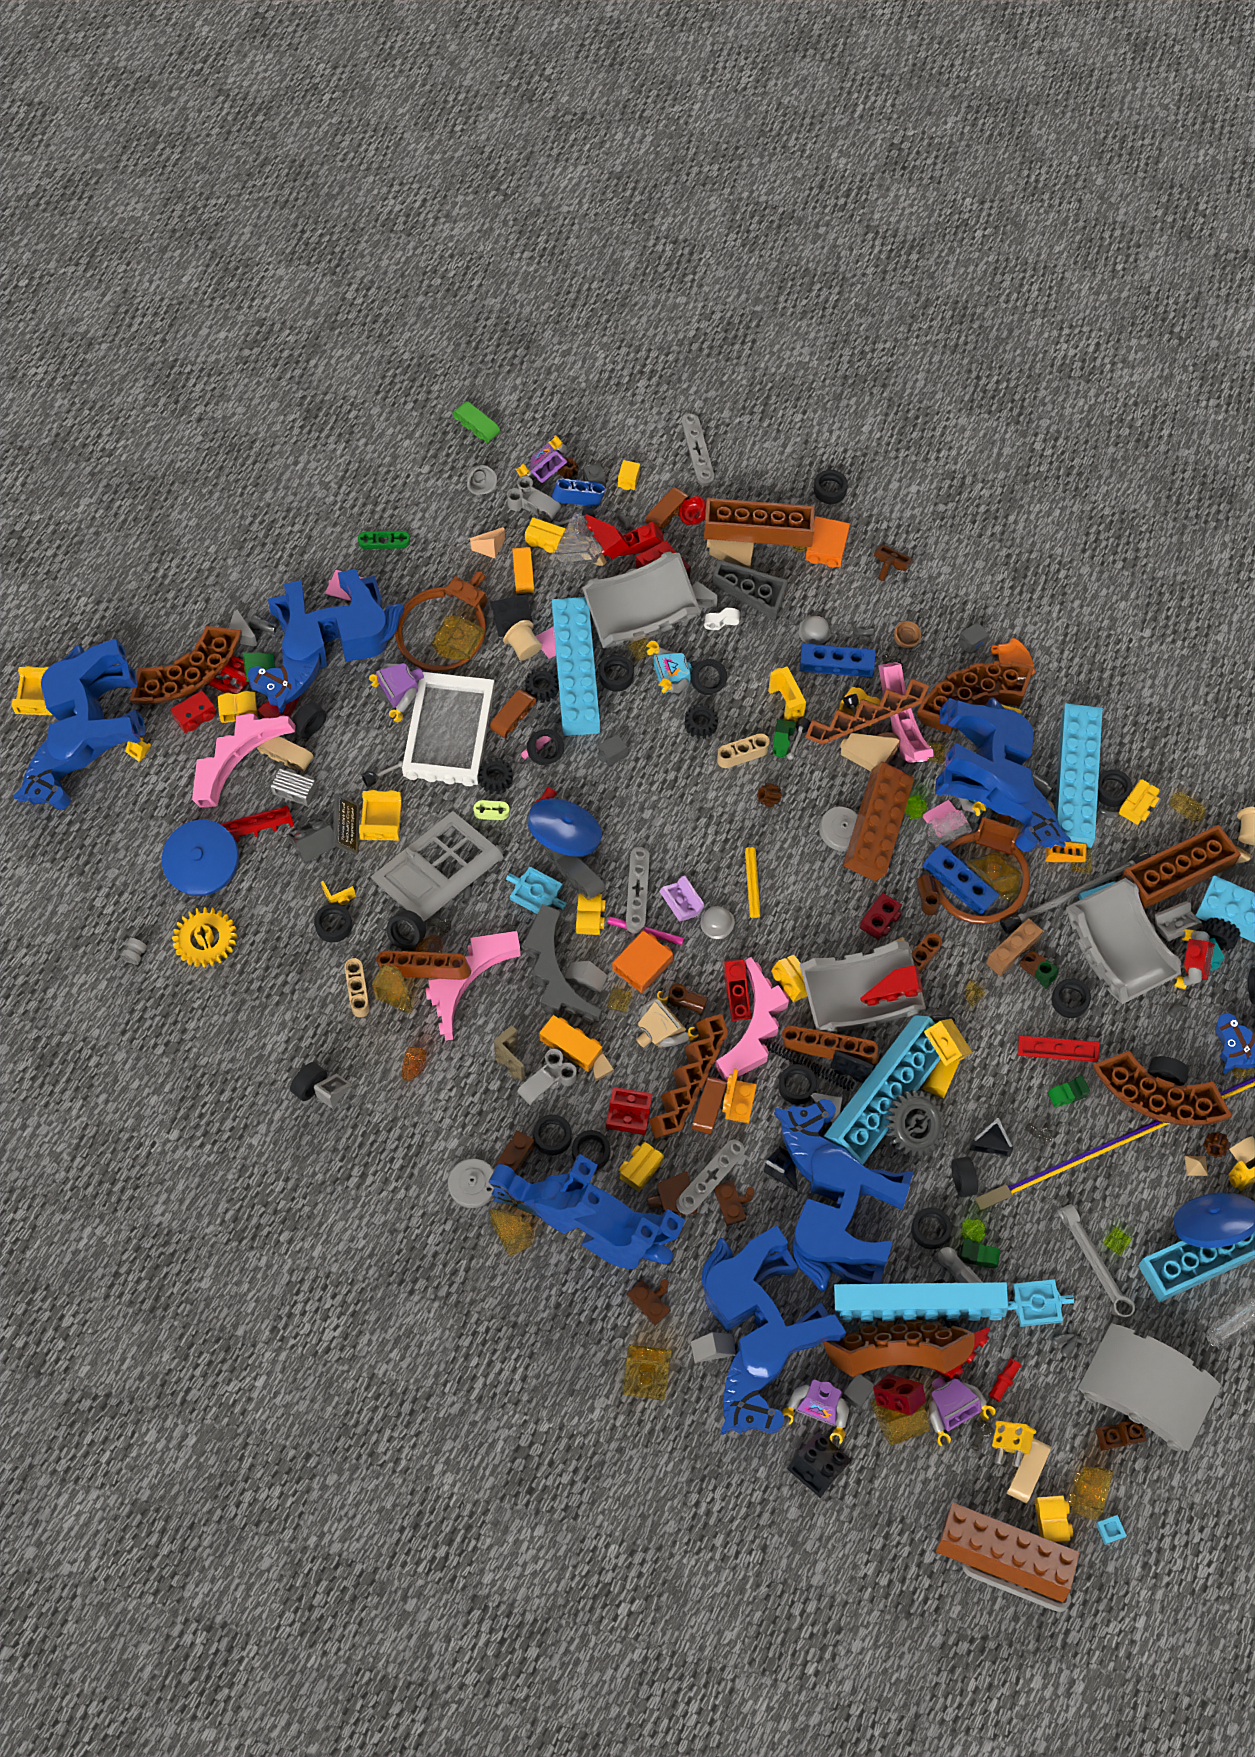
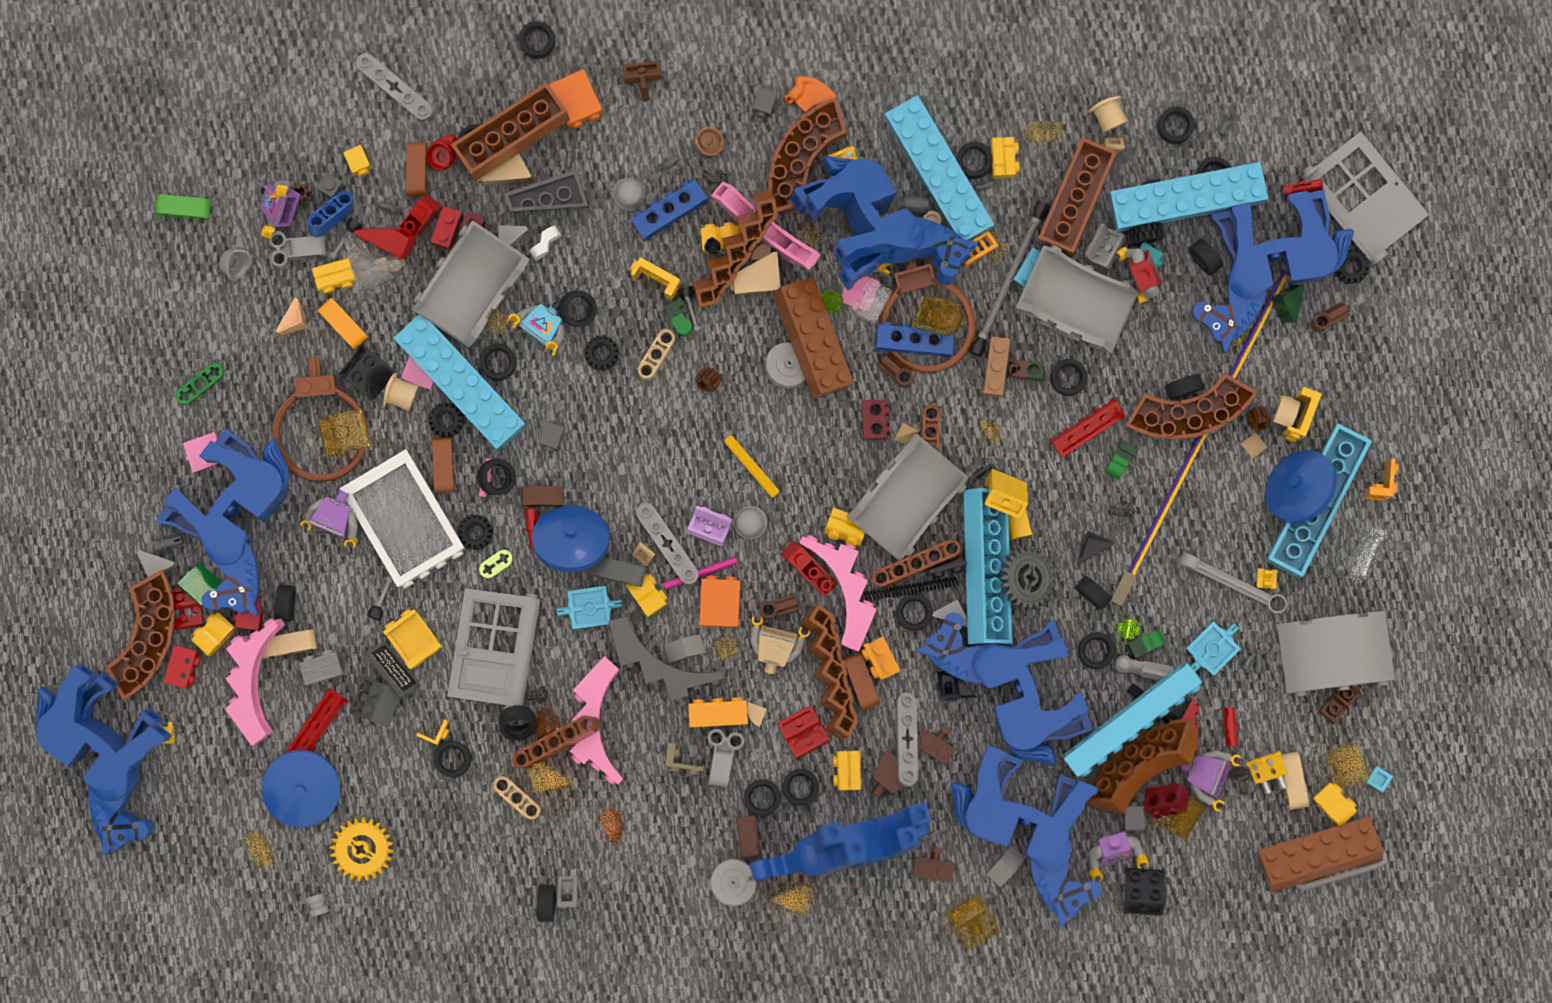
camera: 35 degrees left, 20 degrees up
(29, 693) = (29, 752): yellow panel -> none
(129, 881) = (259, 849): none -> clear yellow tile
(566, 784) = (542, 496): none -> reddish brown slope
(612, 883) = (643, 554): none -> tan slope
(898, 983) = (937, 471): red slope -> none
(1117, 1241) = (1237, 553): clear neon green tile -> none
(1129, 1281) = (1266, 578): none -> yellow tile

